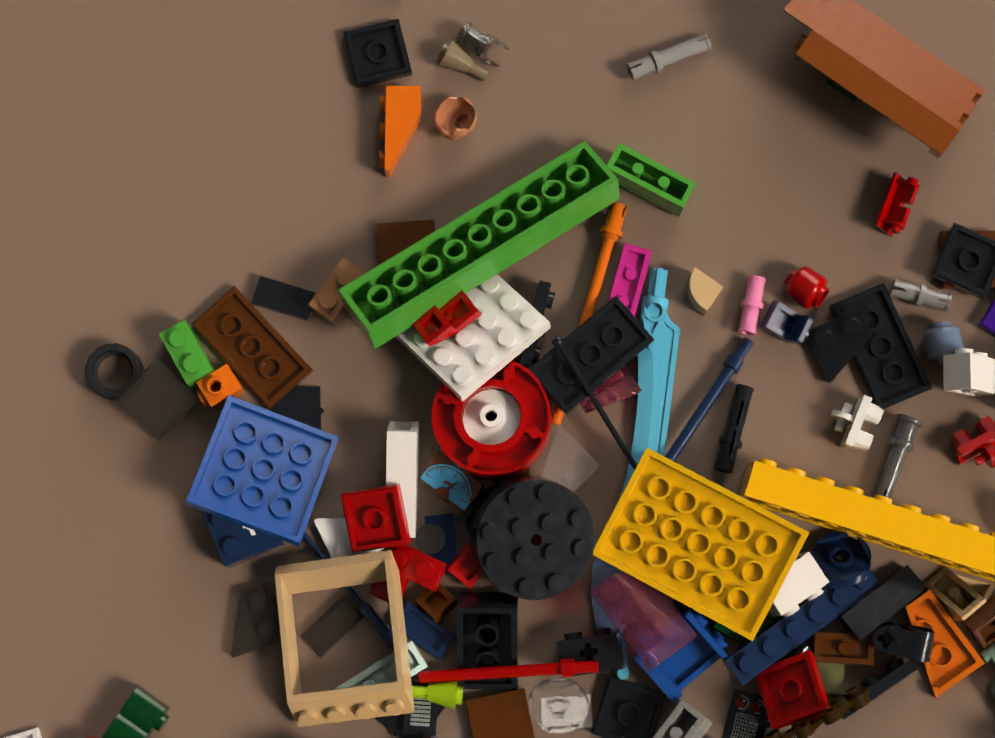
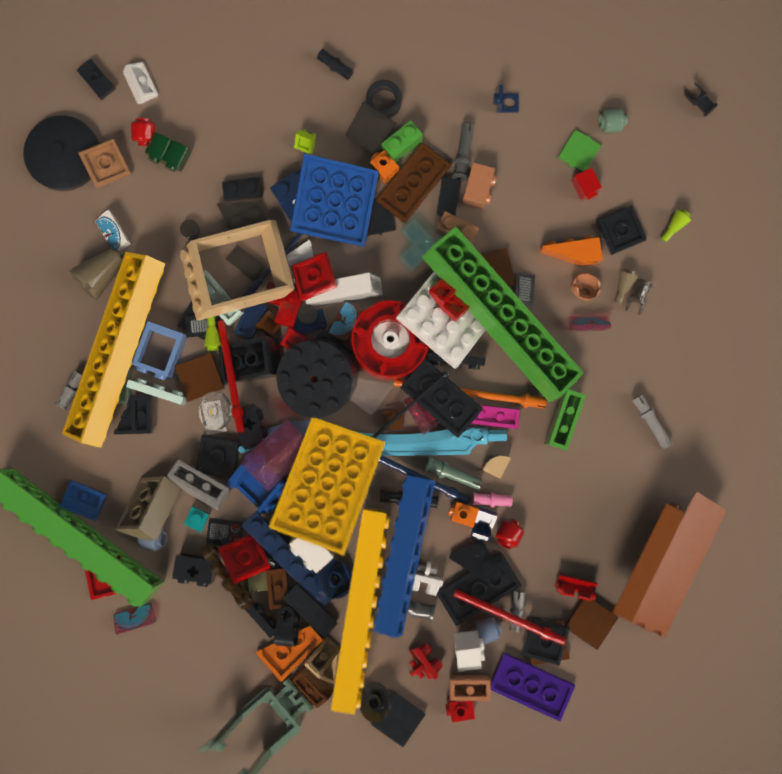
camera: 85 degrees right, 5 degrees up
(44, 438) = (335, 64): none -> black pin
(150, 199) = (499, 98): none -> dark blue bracket
(158, 503) = (305, 141): none -> lime tile
(210, 38) = (612, 120): none -> sand green head
(215, 614) = (241, 189): none -> black plate
(231, 268) = (462, 160): none -> dark grey pin
(247, 94) = (579, 151): none -> bright green piece
(264, 706) = (190, 229): none -> clear smoke tile
(276, 249) = (478, 186): none -> nougat brick
(301, 91) = (586, 184): none -> red brick
(354, 350) = (420, 244): none -> clear light blue plate
(442, 206) = (525, 288): none -> black sticker
(509, 122) = (589, 323): none -> clear pink slope
(605, 439) = (397, 425): none -> reddish brown plate
(697, 370) = (444, 470): none -> sand green pin
(767, 350) = (463, 513): none -> orange brick
(820, 446) = (404, 556): none -> blue brick
(950, 191) = (591, 622): none -> reddish brown tile
(958, 259) = (544, 632): none -> red bar

